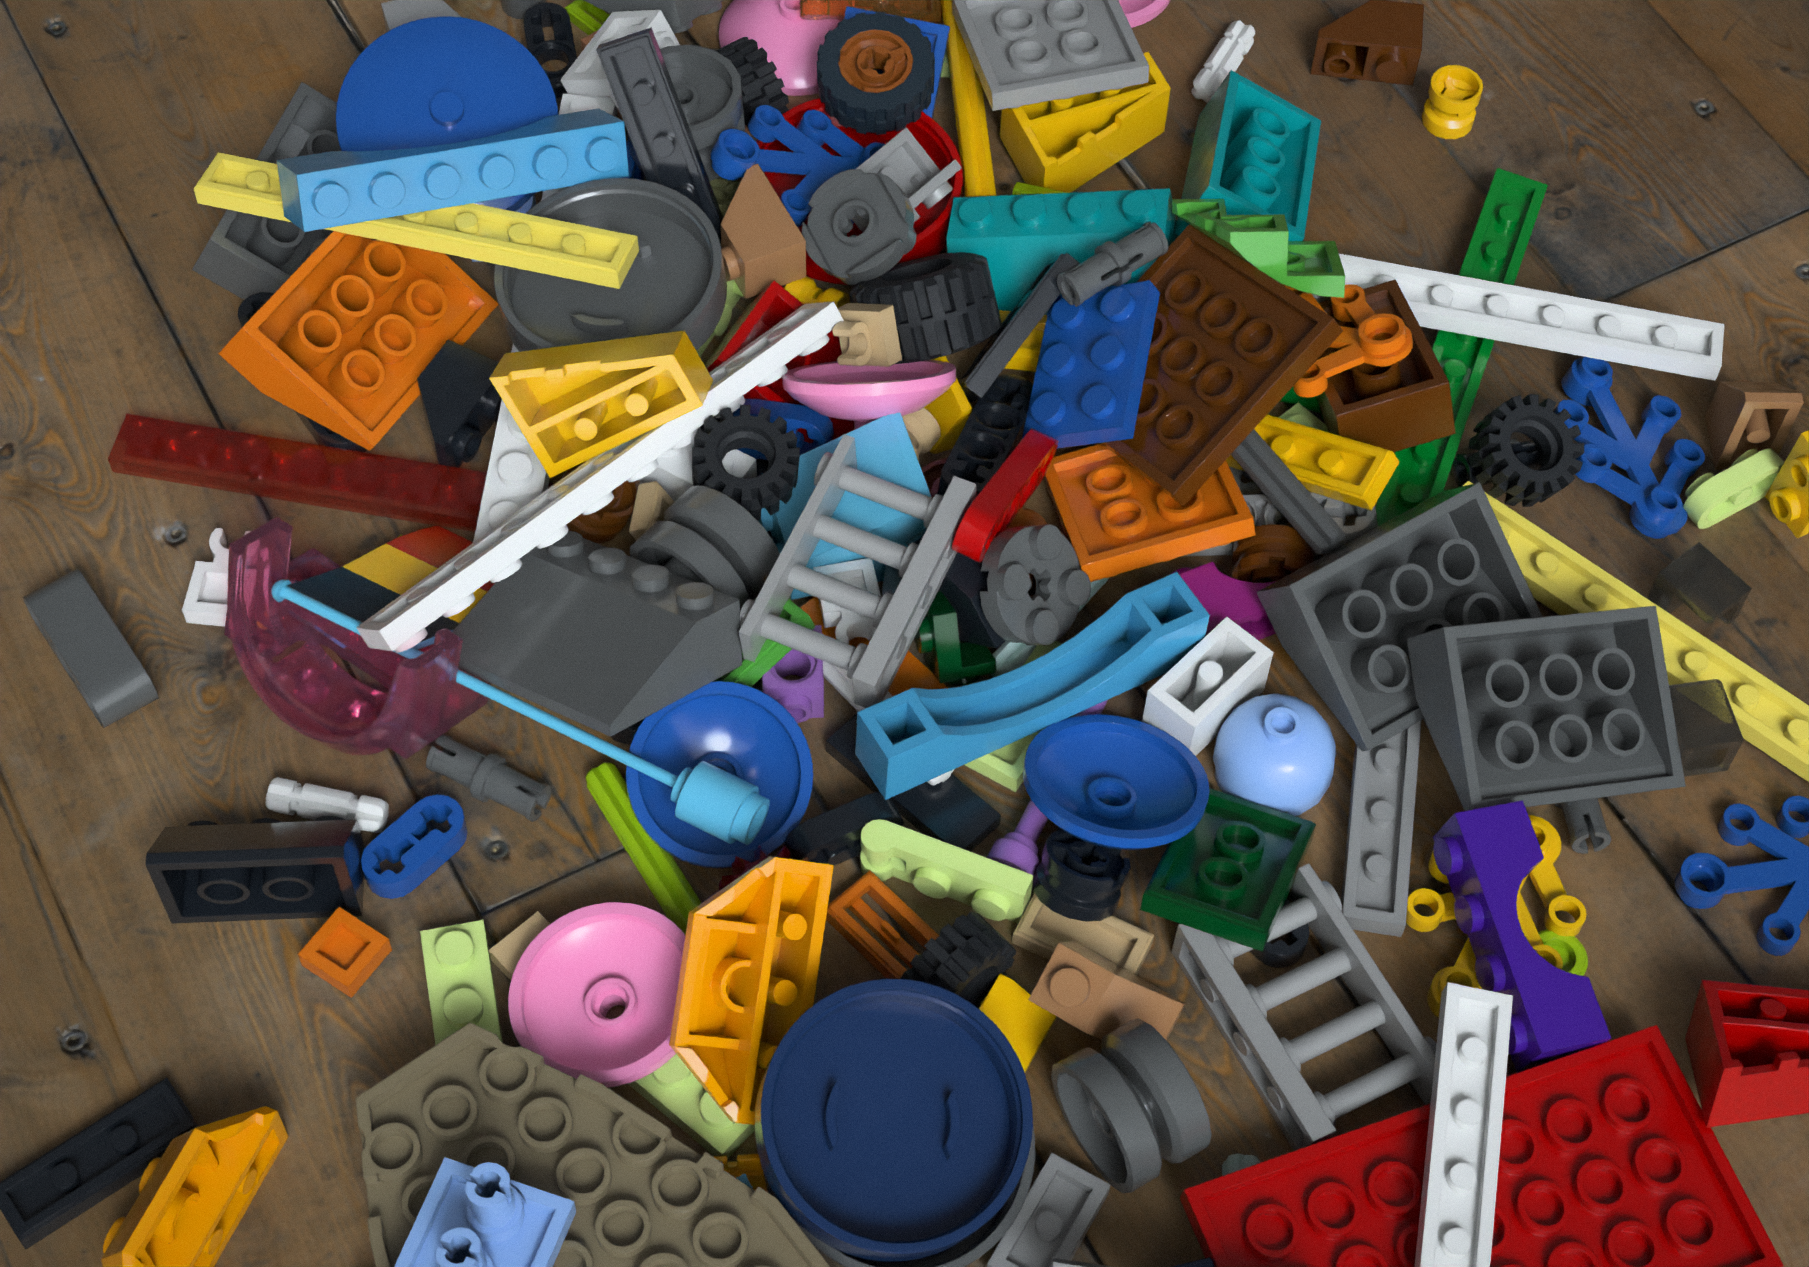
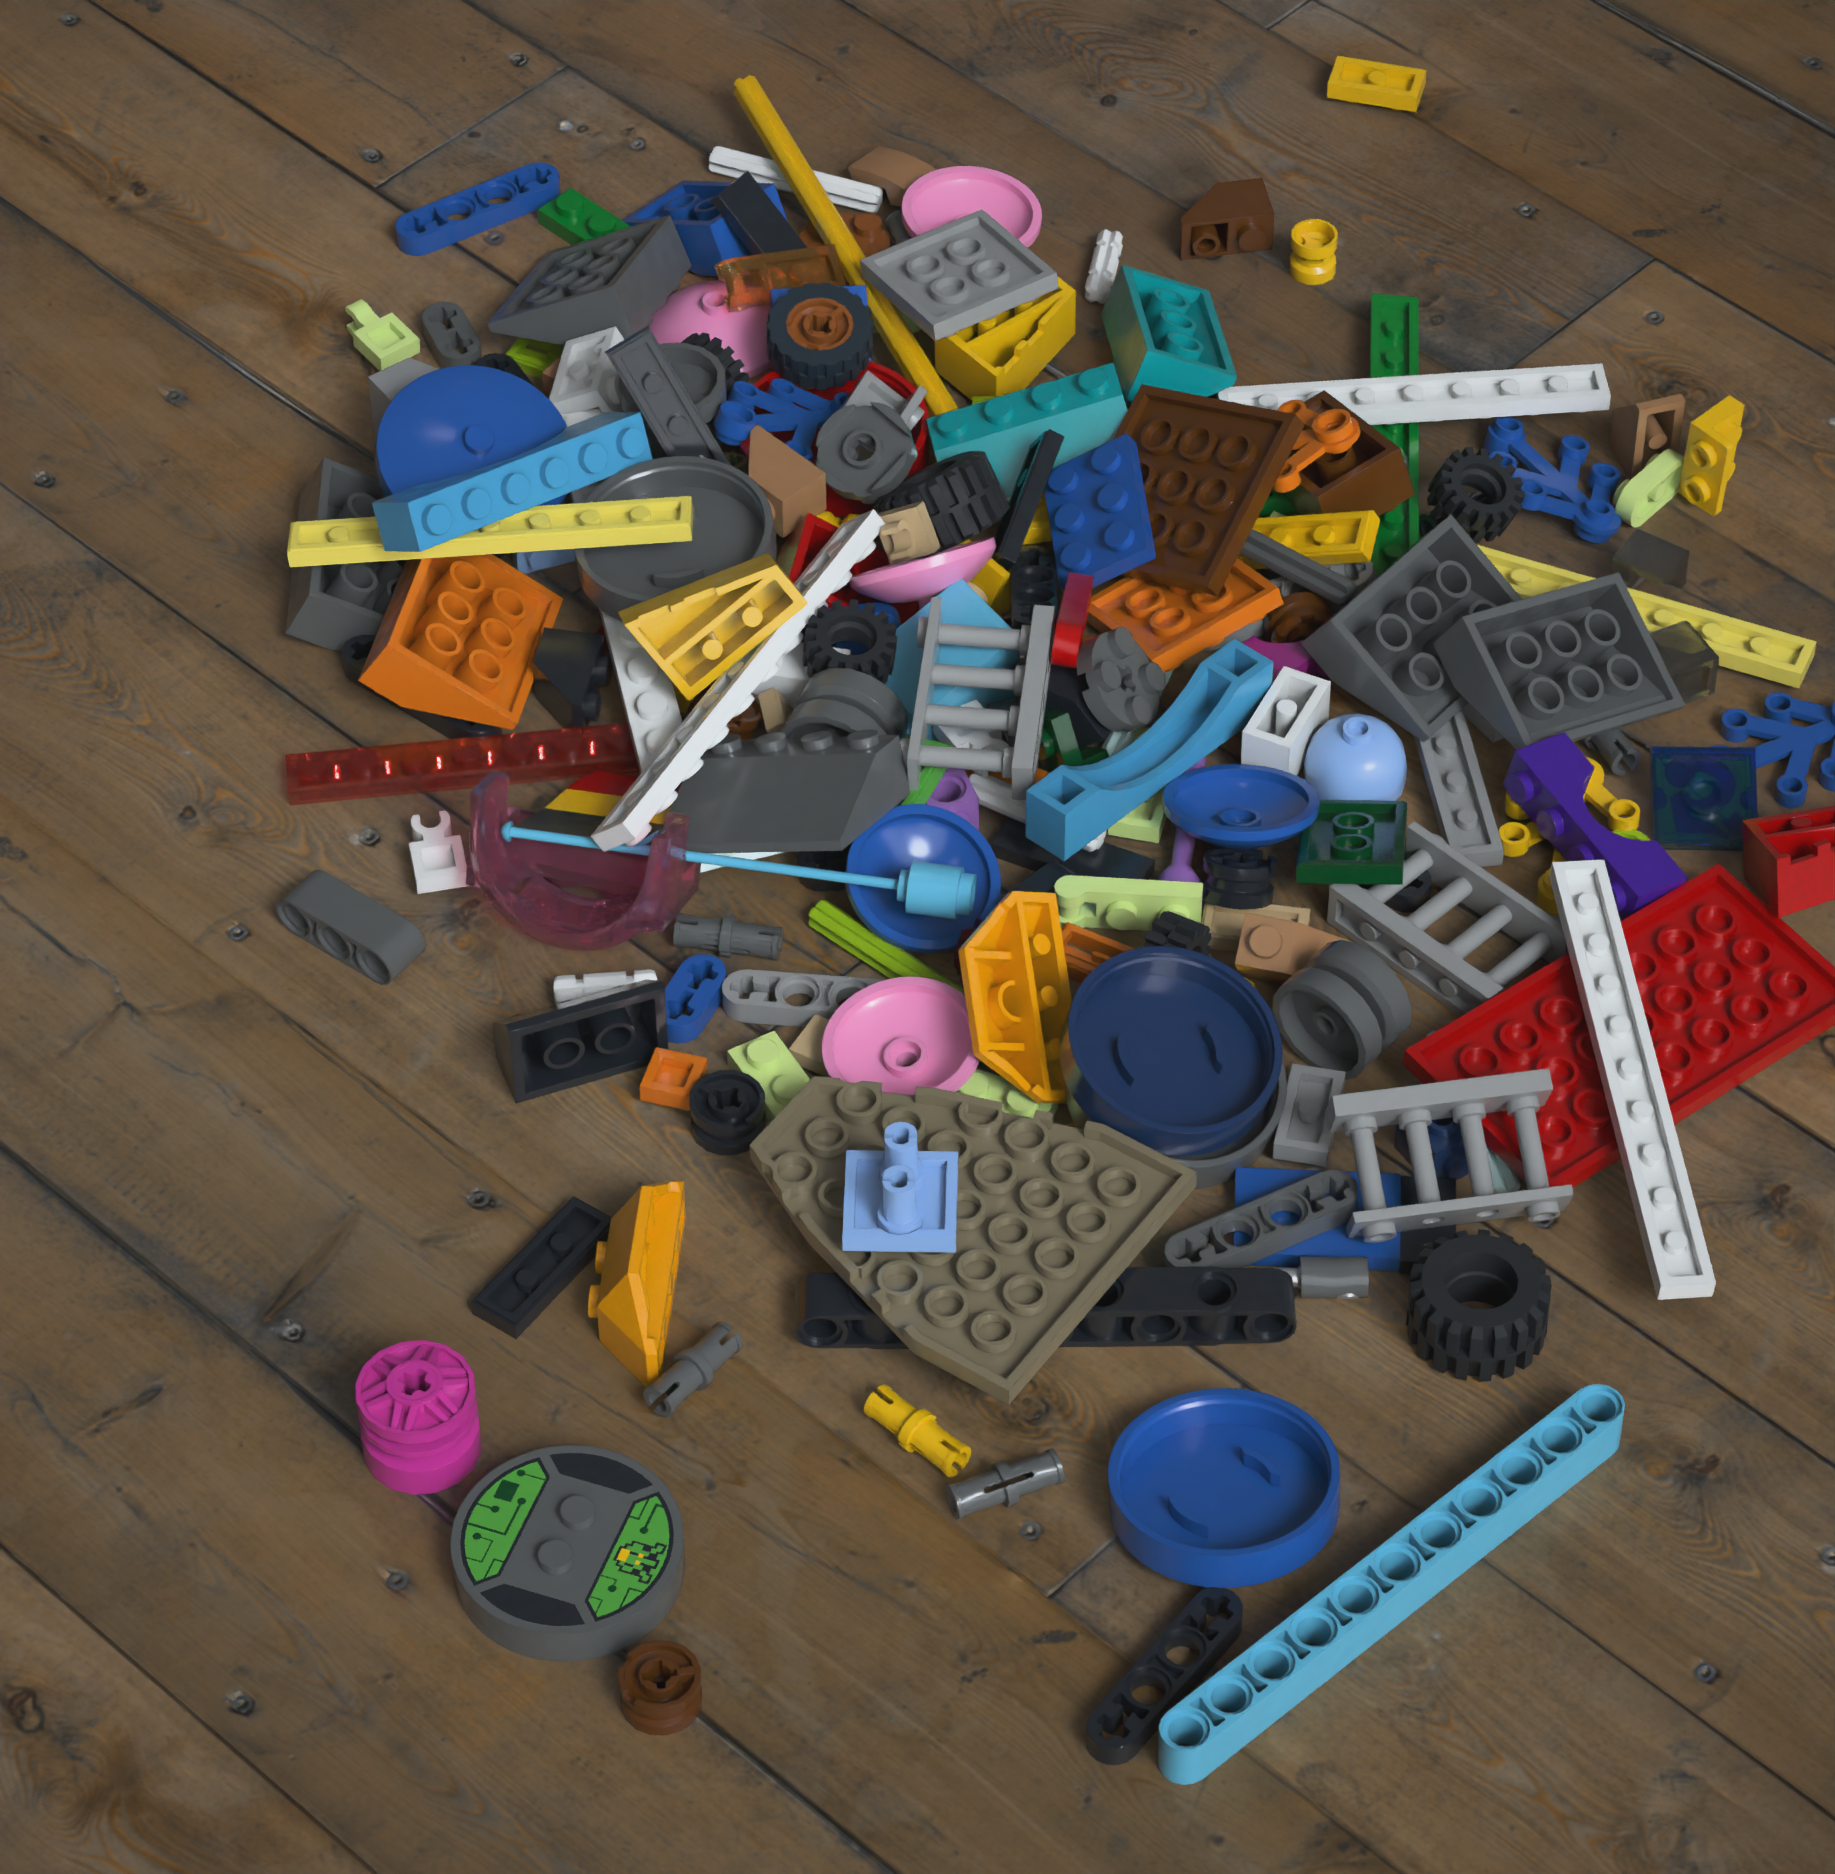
camera: 15 degrees left, 10 degrees down
(373, 1038) = (727, 1112): none -> black wheel
(564, 884) = (823, 989): none -> light grey beam
(1112, 263) = (1090, 428): dark grey pin -> none
(1264, 243) = (1210, 378): bright green slope -> none
(1667, 920) = (1702, 796): none -> clear blue tile

